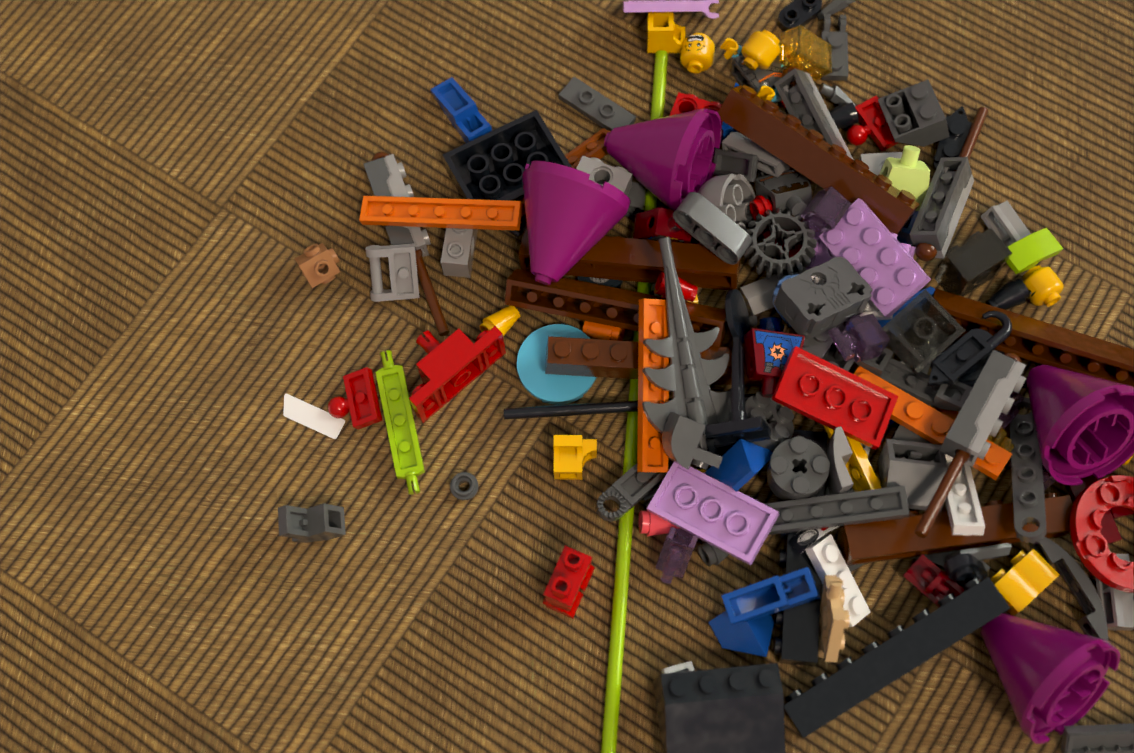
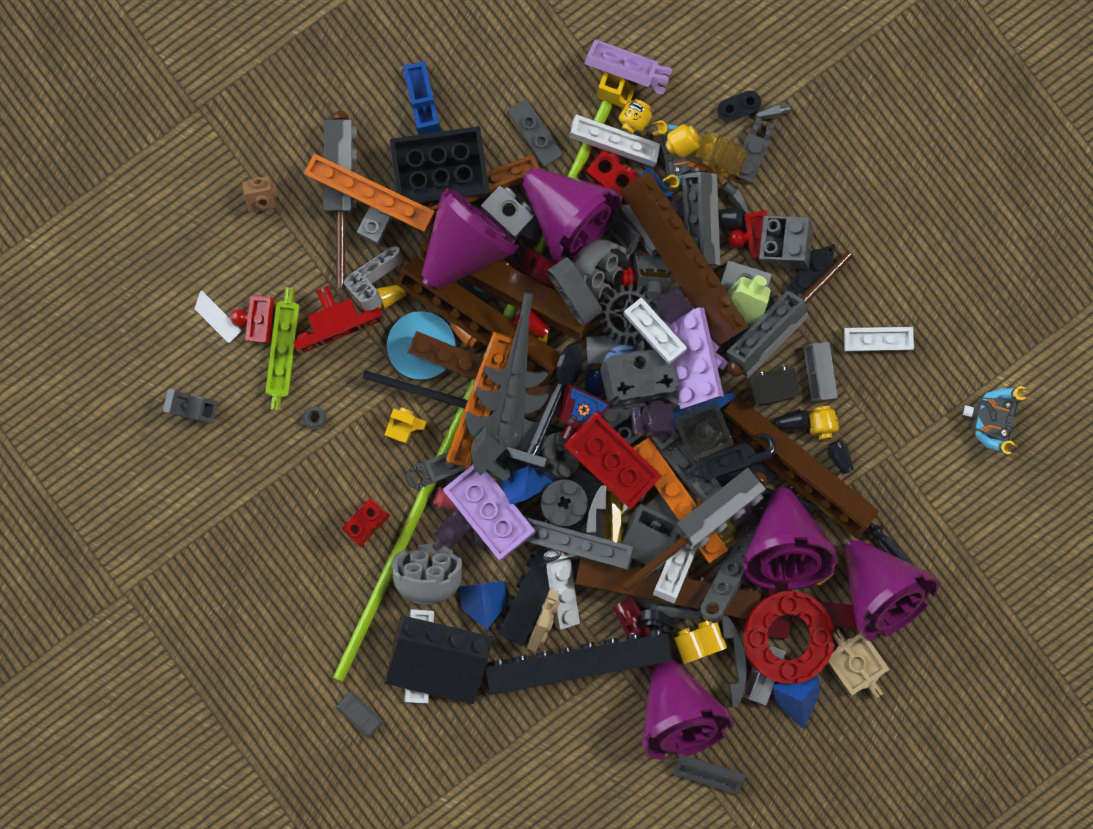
camera: 10 degrees right, 15 degrees up
(402, 272) = (324, 226): light grey plate -> none
(470, 313) = (360, 281): none -> light grey beam
(670, 632) = (424, 583): none -> light grey cylinder
(684, 81) = (614, 140): none -> white plate
(771, 596) = (507, 588): blue slope -> none
(820, 240) = (655, 331): none -> white plate
(1032, 249) = (824, 393): lime slope -> none
(1057, 181) = (878, 339): none -> white plate
(1078, 314) = (840, 455): none -> black cone

